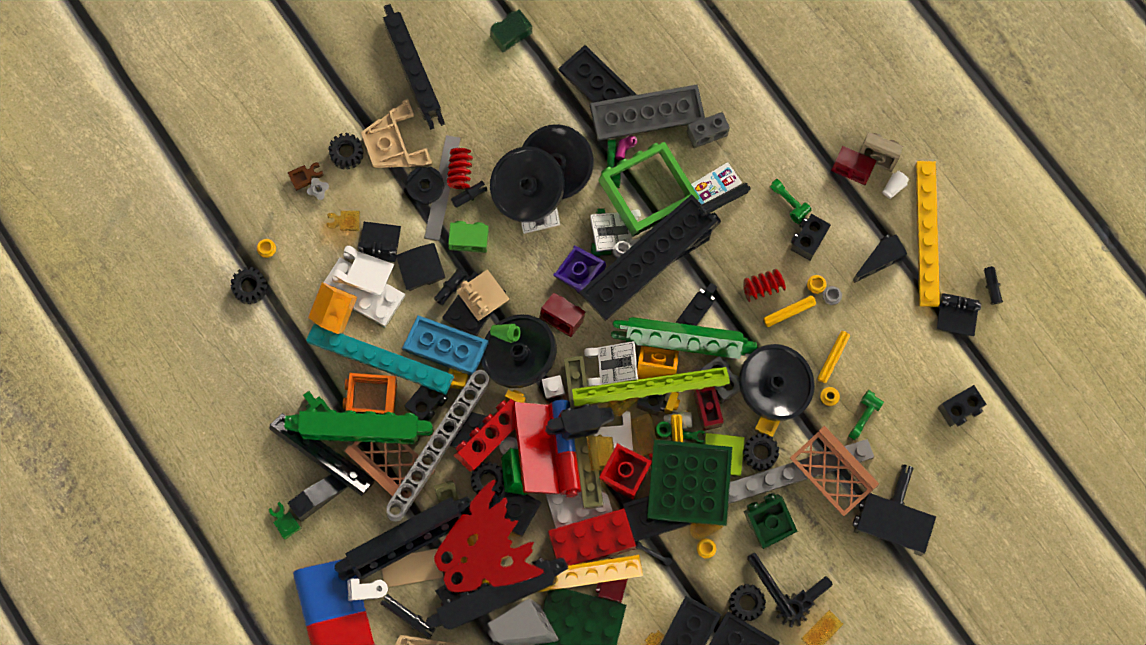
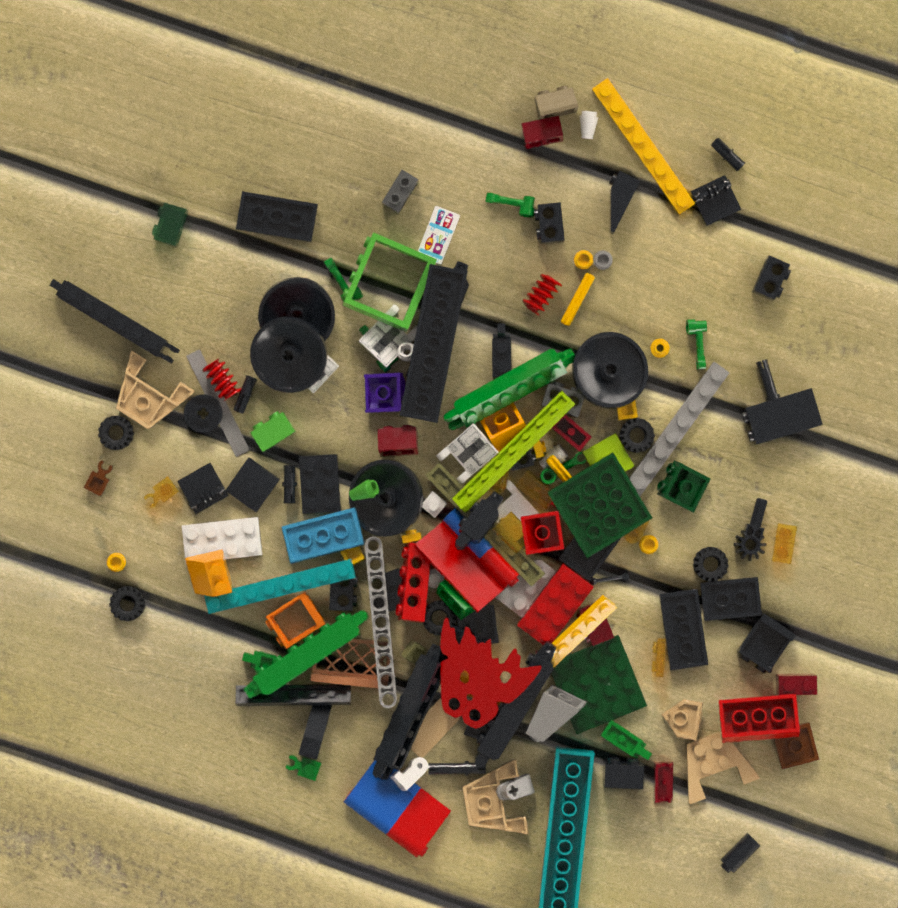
camera: 25 degrees left, 15 degrees up
(316, 183) = (118, 477): light grey plate -> none
(365, 273) = (214, 522): white flag -> none
(482, 295) = (322, 473): tan hinge -> none
(624, 145) = (339, 256): dark pink arm -> none
(646, 112) = (339, 214): dark grey plate -> none
(724, 199) = (458, 246): black axle -> none
(771, 586) = (721, 539): black axle -> none
(833, 357) = (640, 314): yellow axle -> none
(846, 459) = (714, 395): nougat fence -> none

